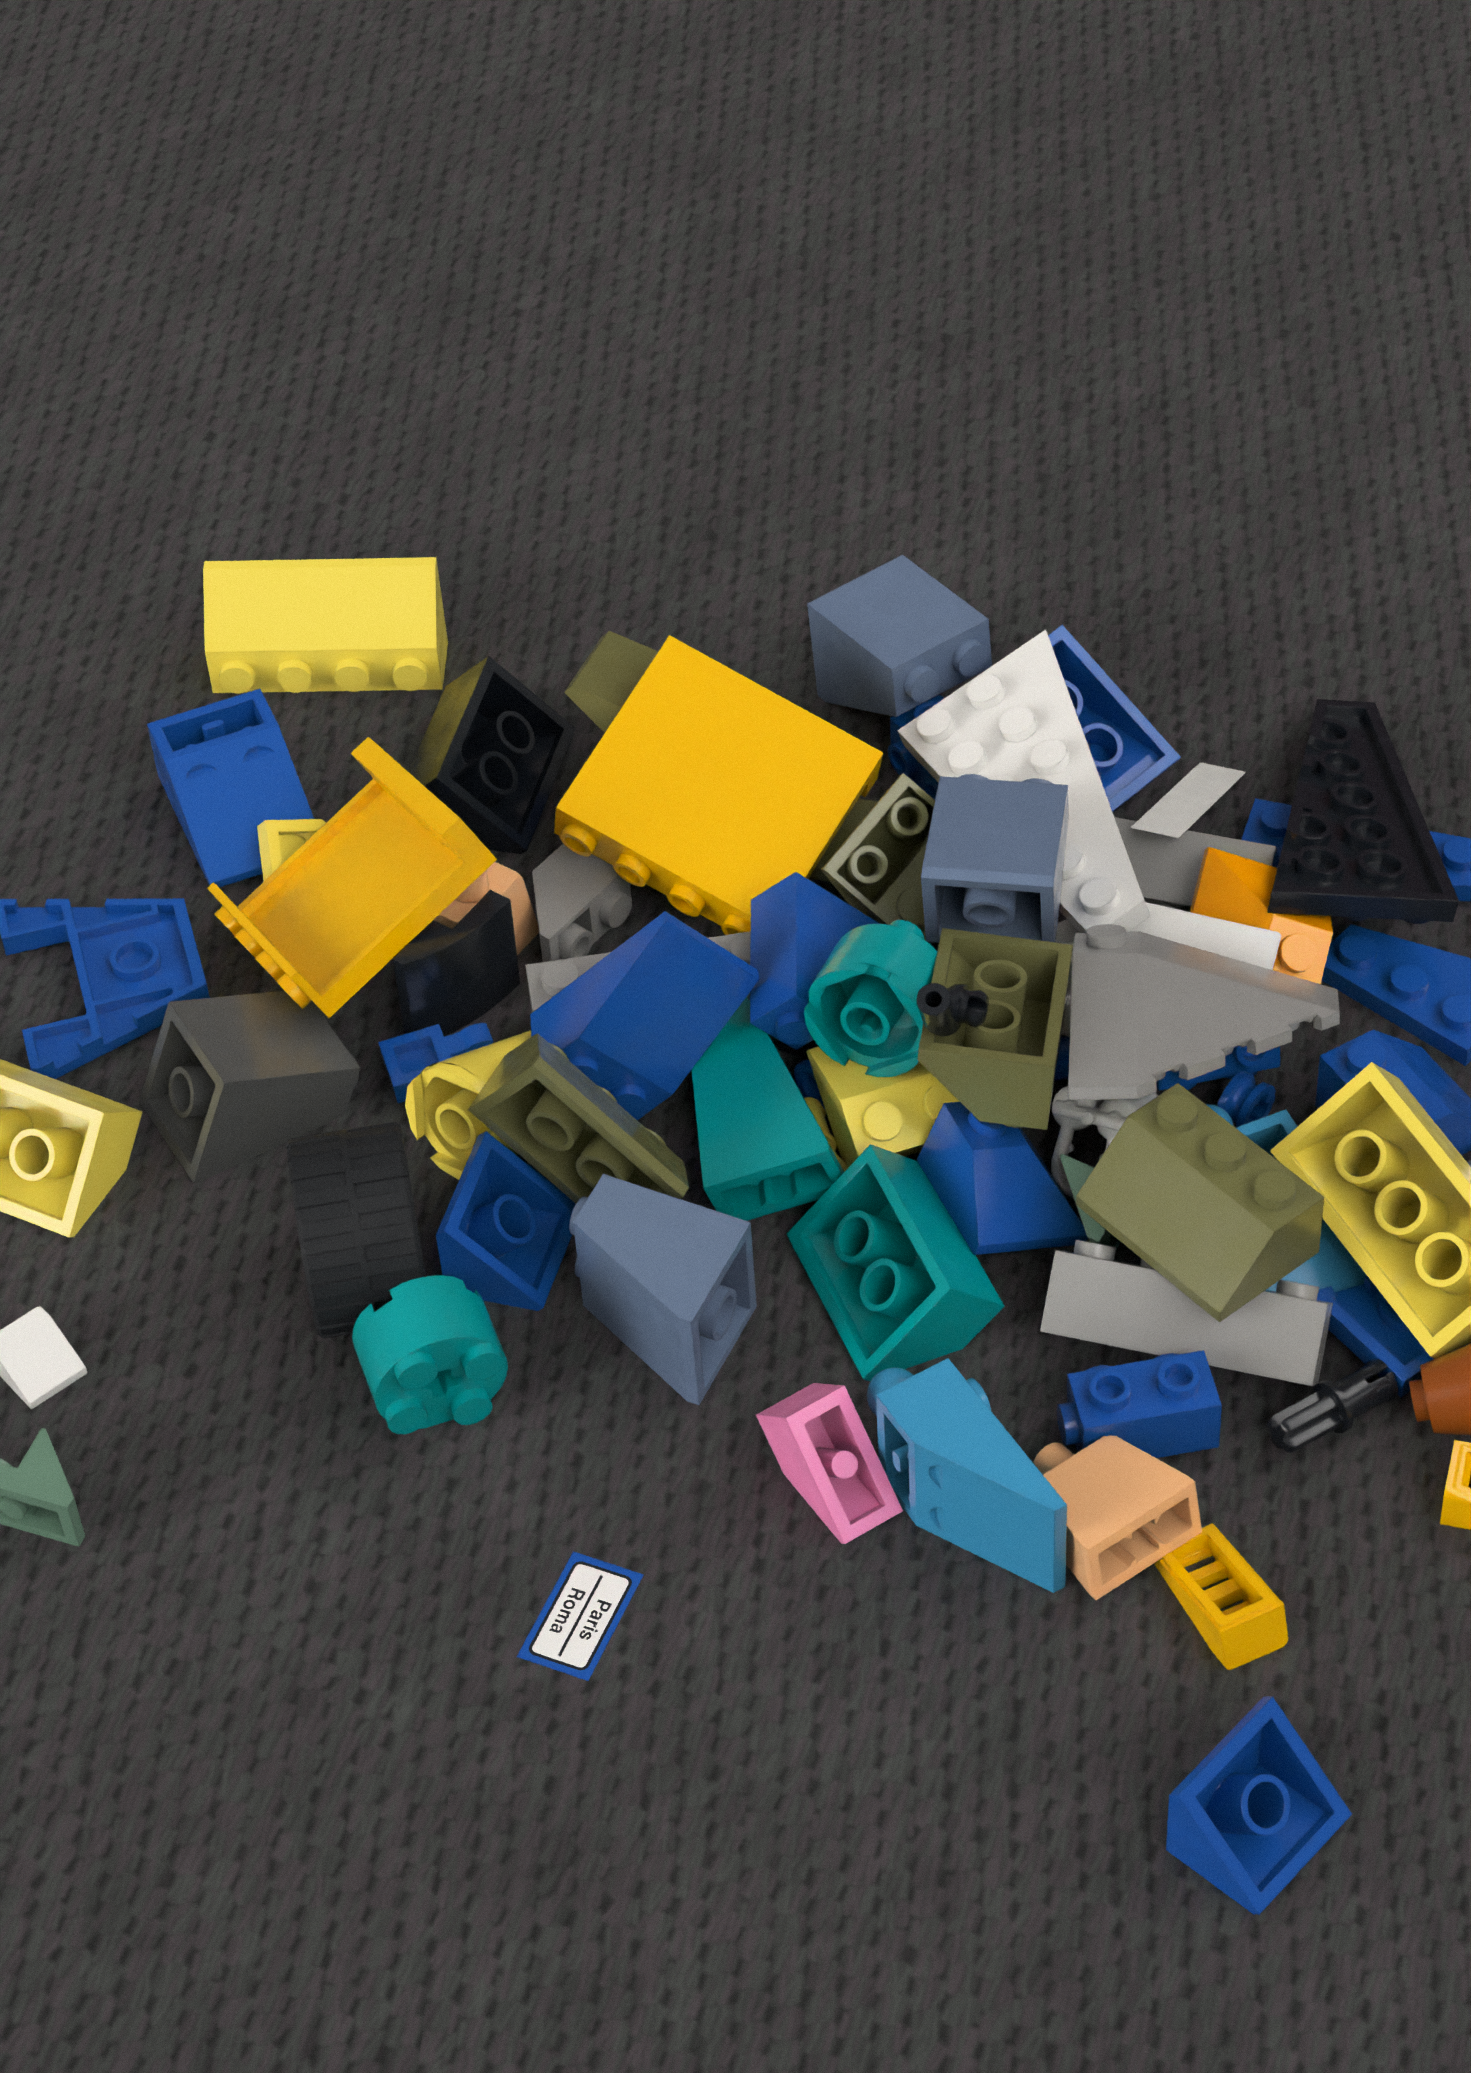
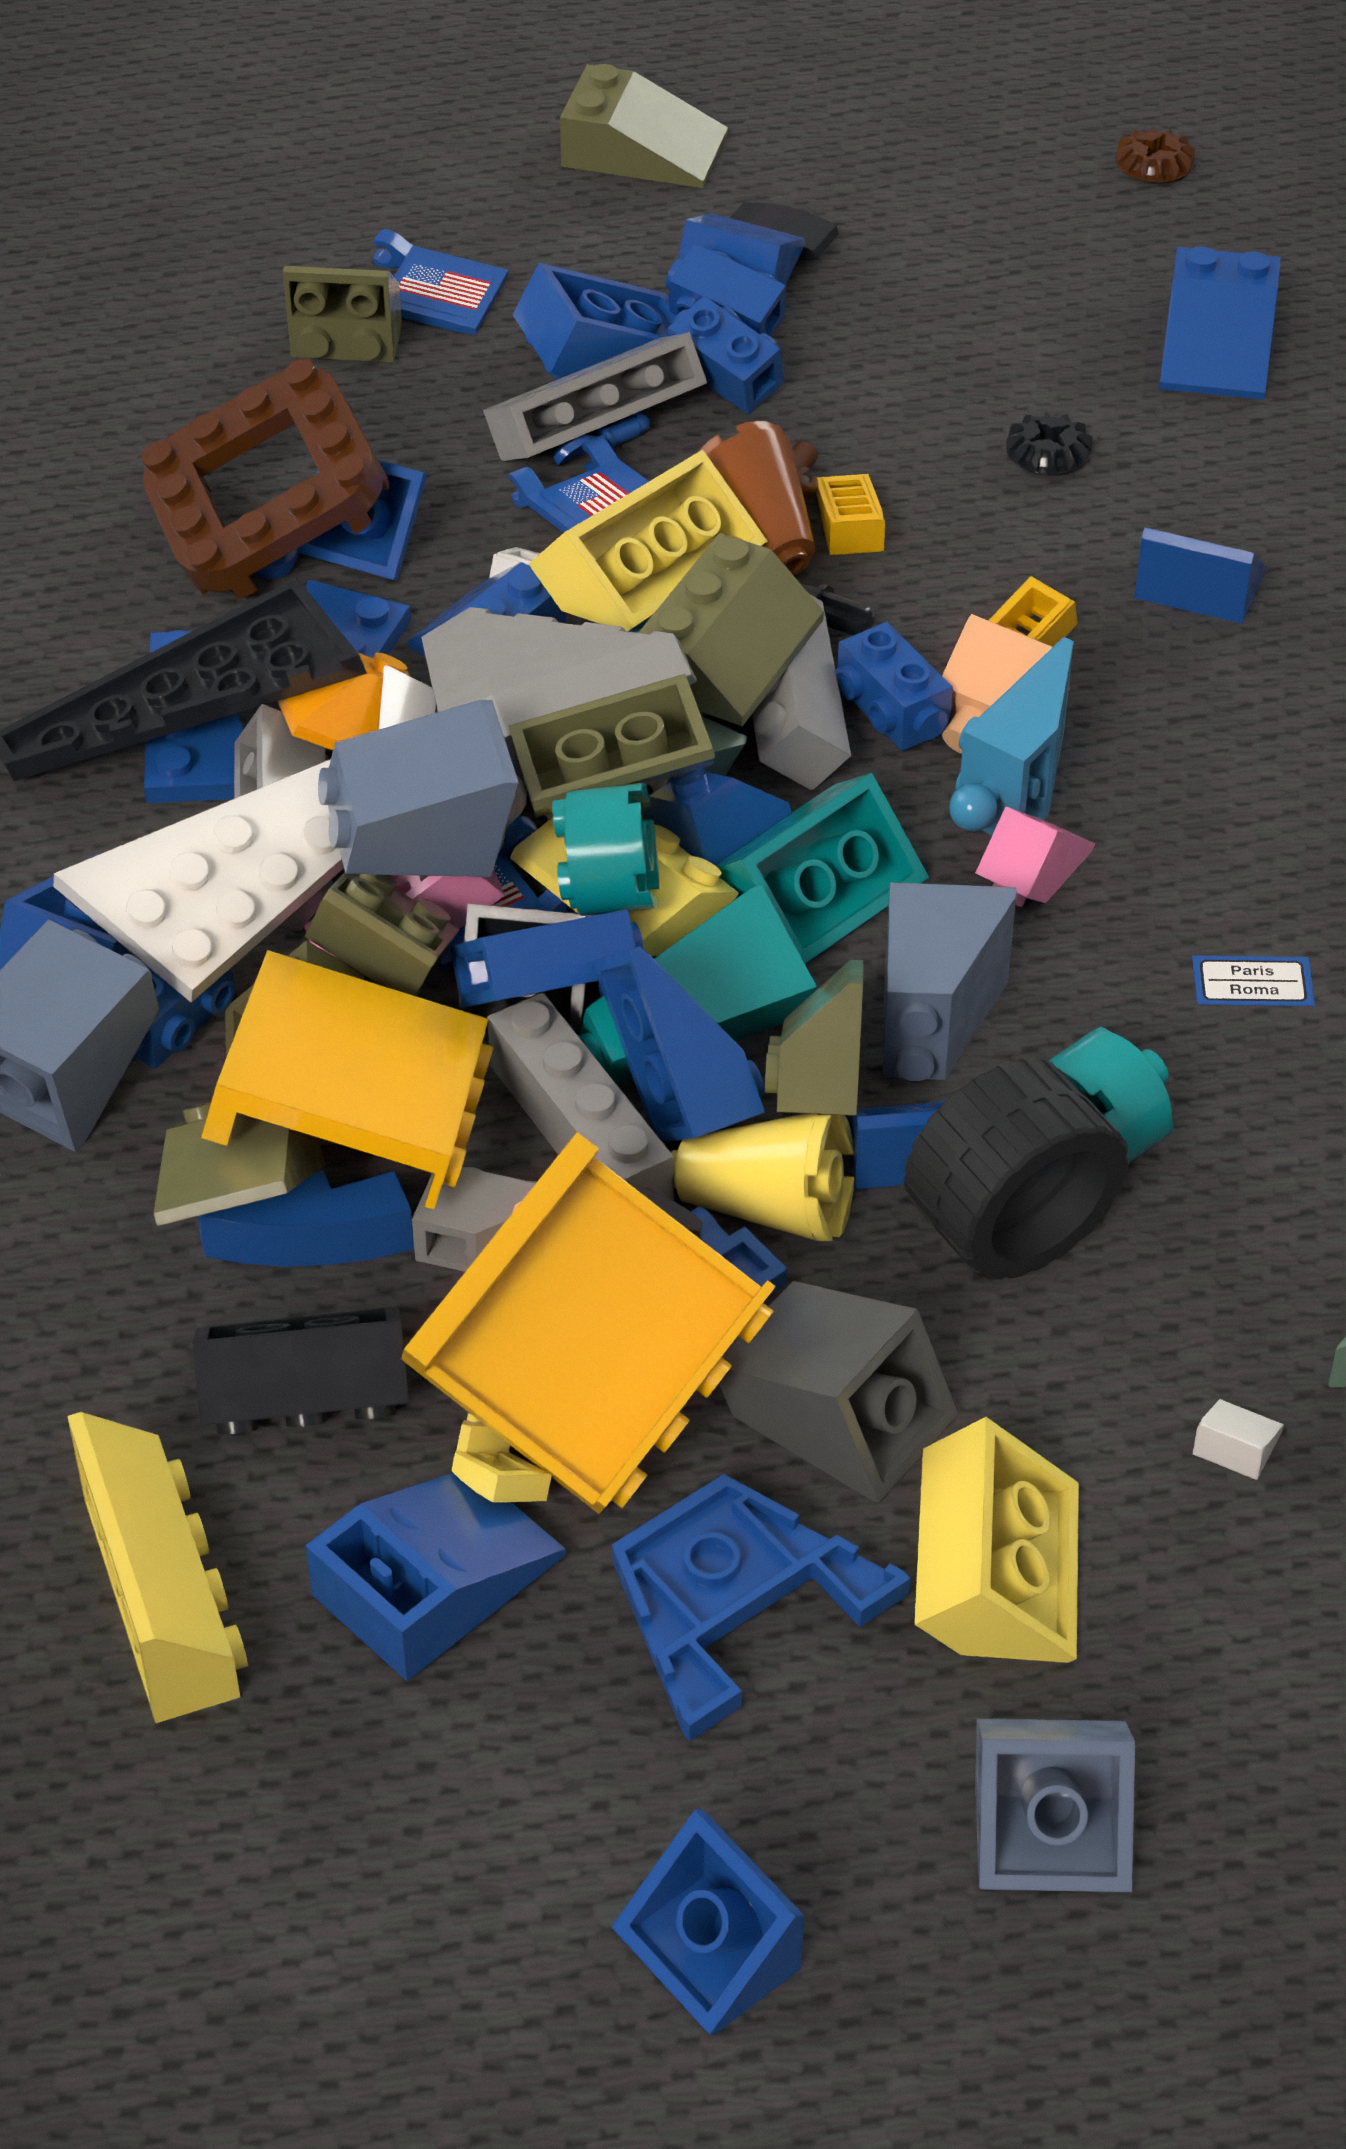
camera: 115 degrees left, 0 degrees up
(947, 1008) = (674, 730): black arm -> none
(1188, 800) = (187, 800): white sticker -> none

